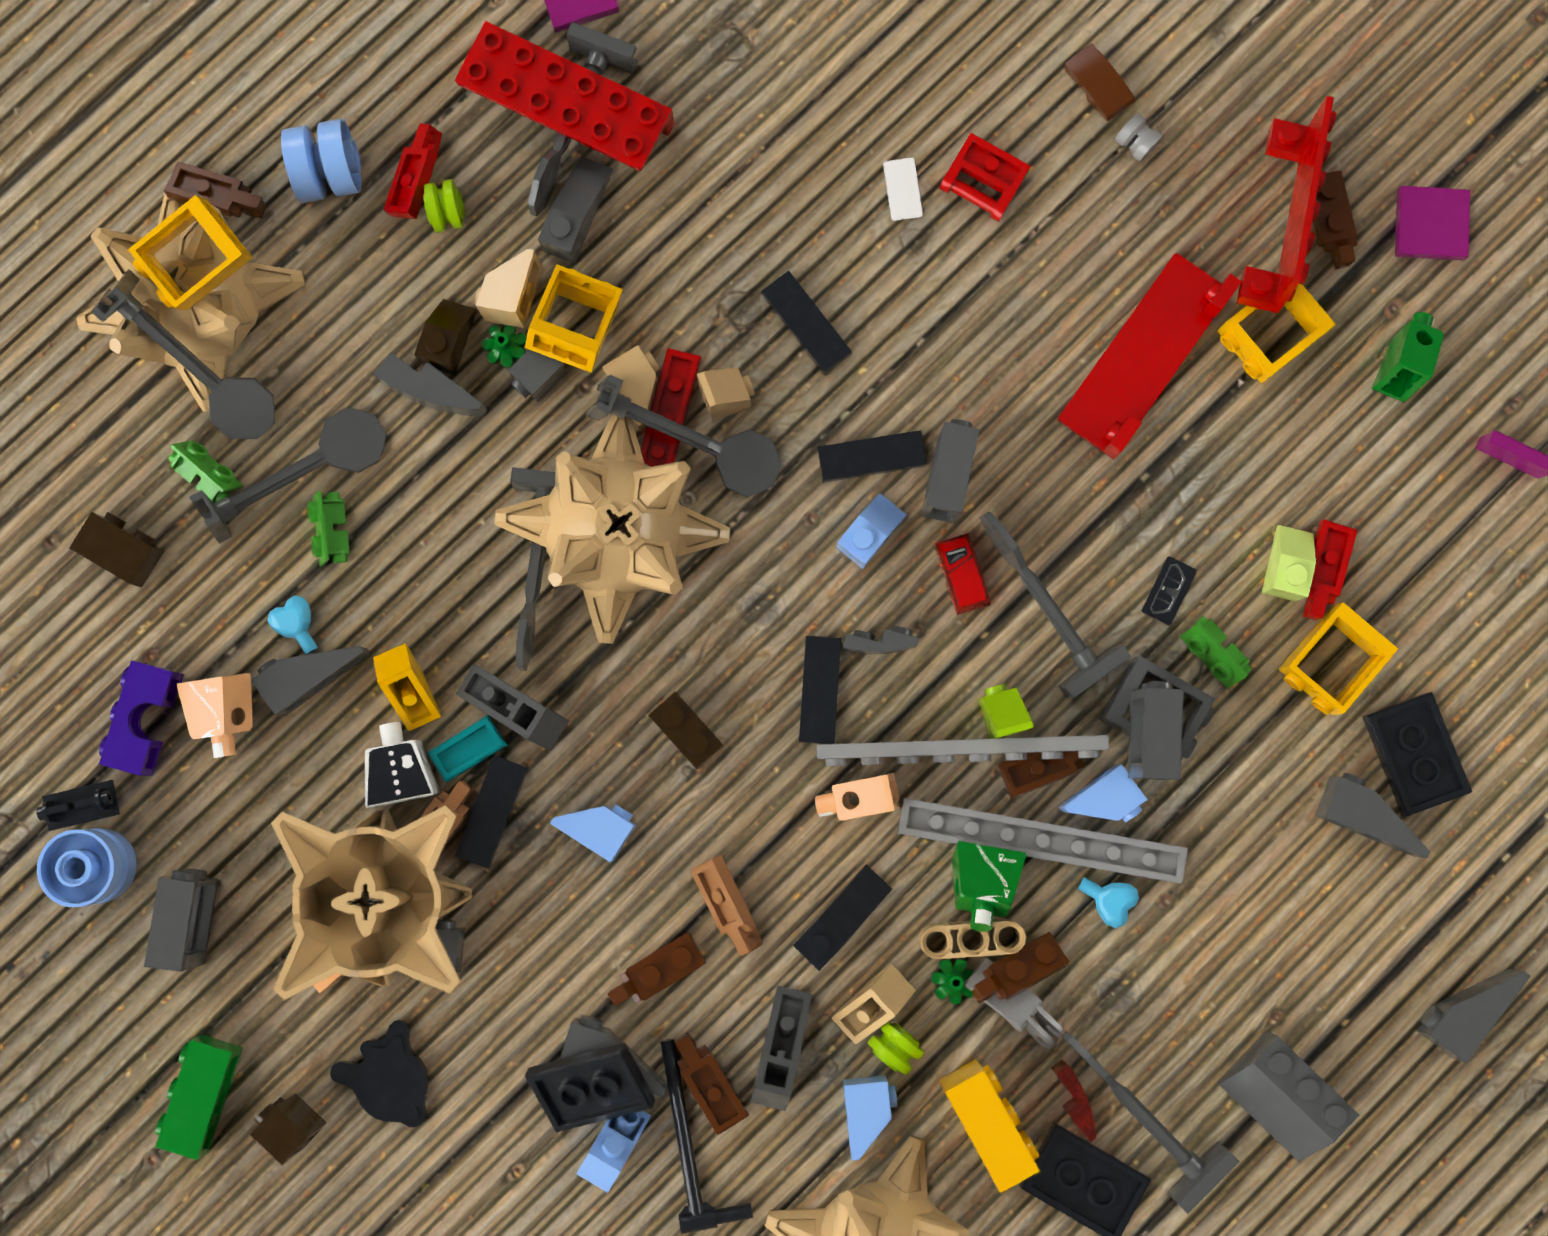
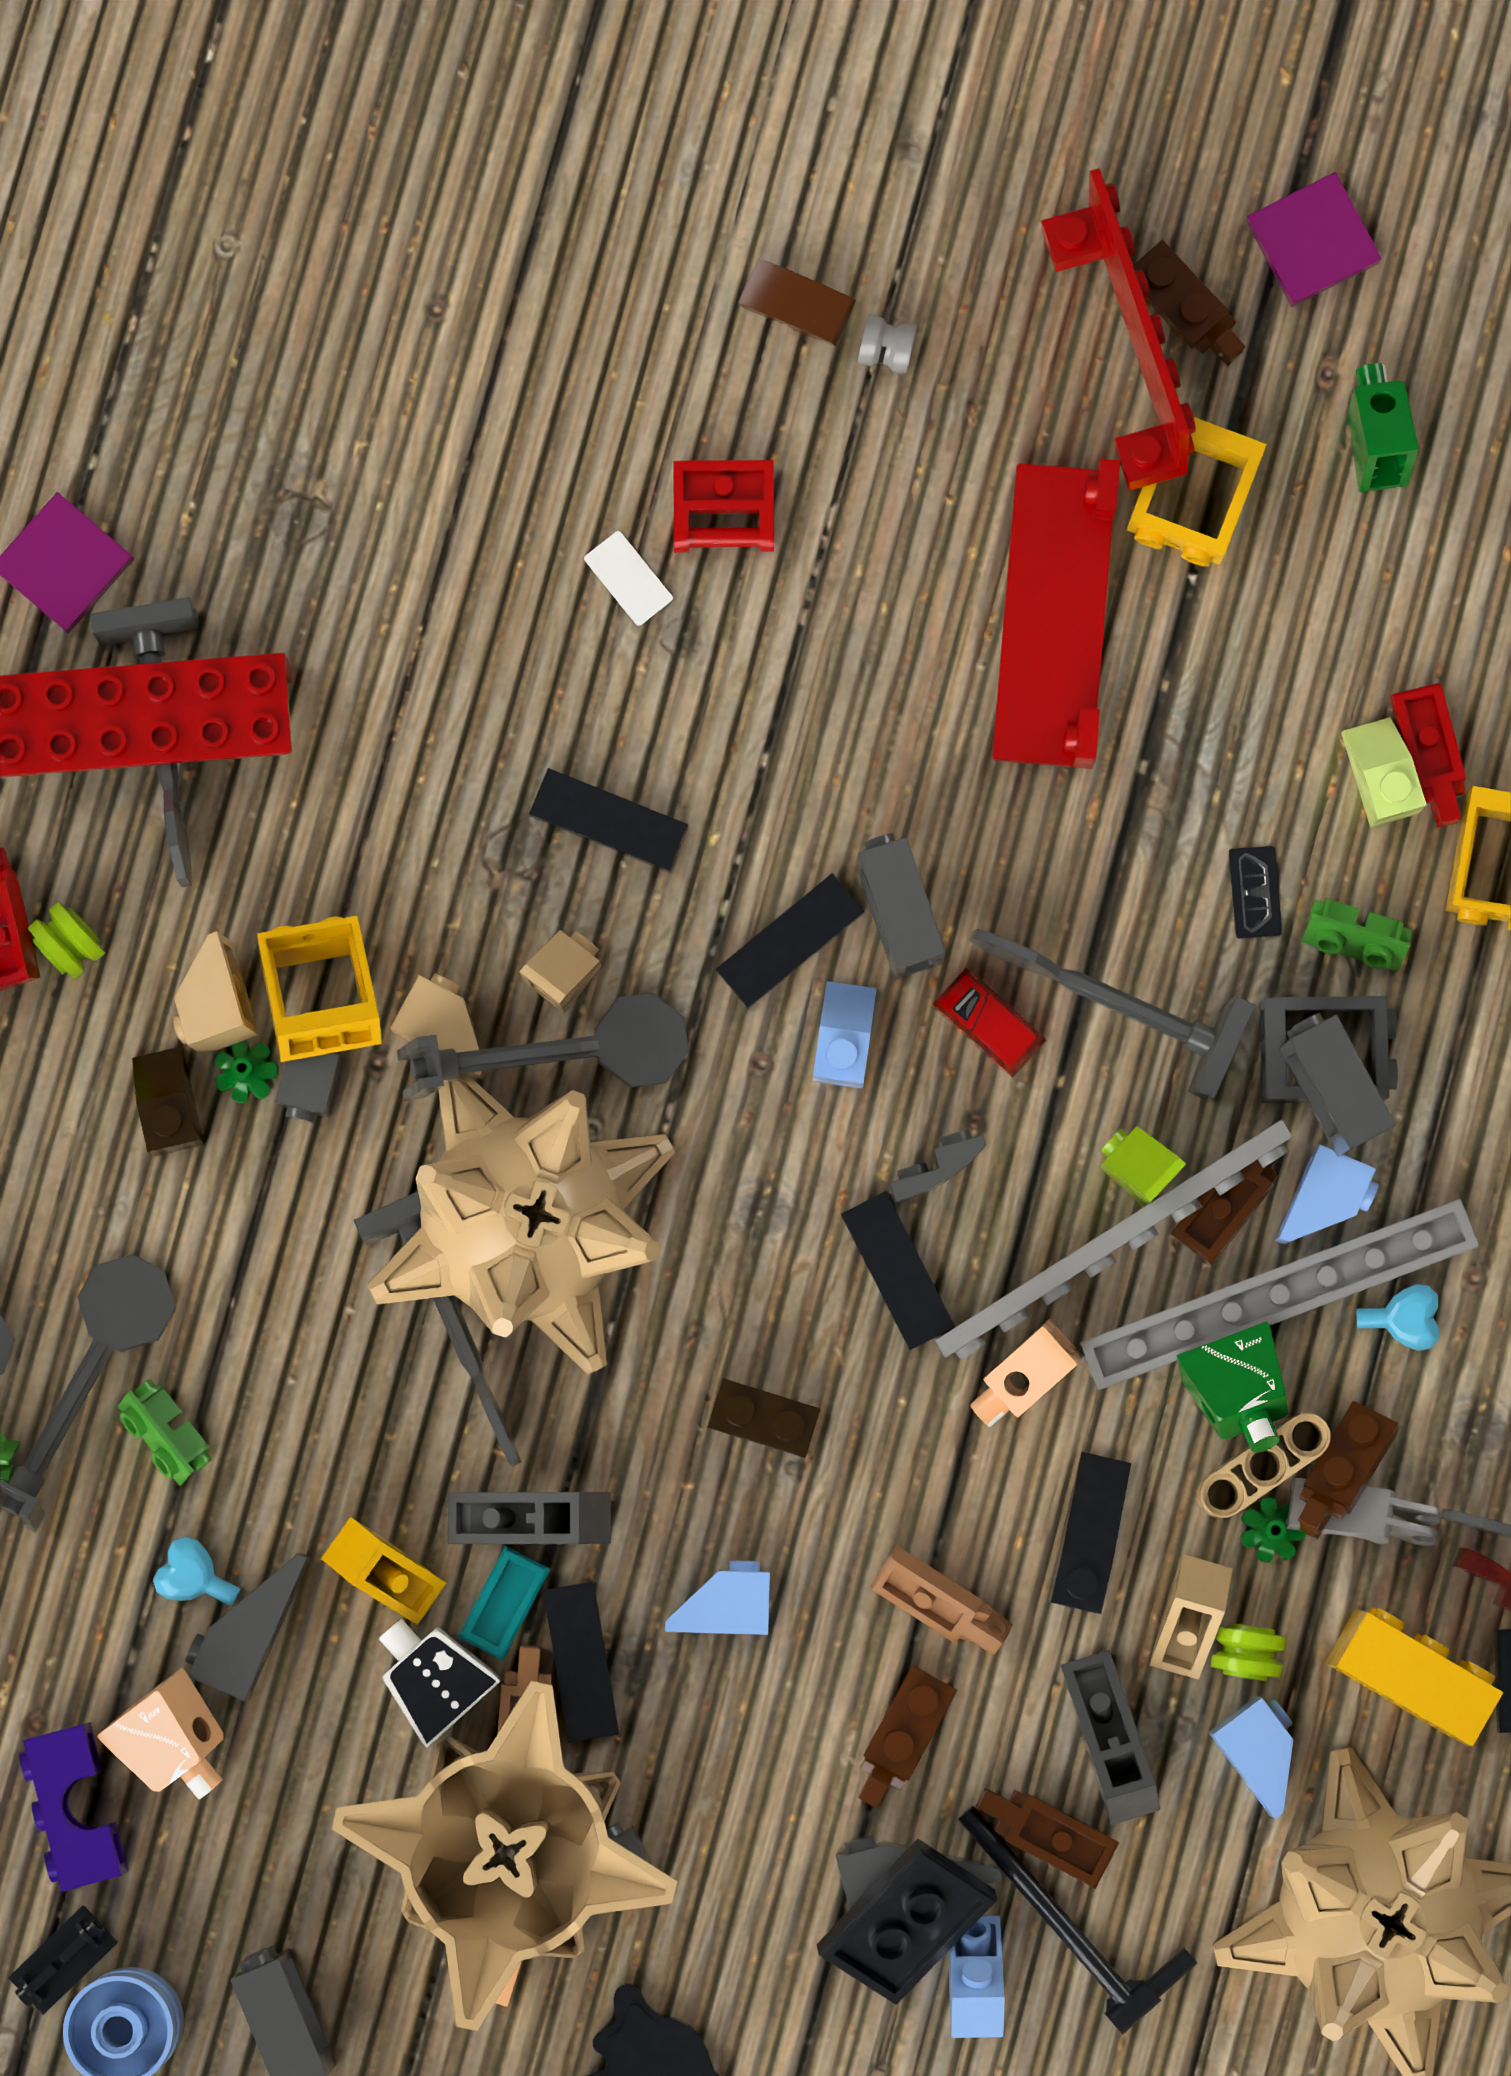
camera: 30 degrees left, 0 degrees up
(428, 387) = (185, 1182): dark grey slope -> none
(574, 210) = (232, 846): dark grey slope -> none
(672, 402) = (501, 1023): red tile -> none

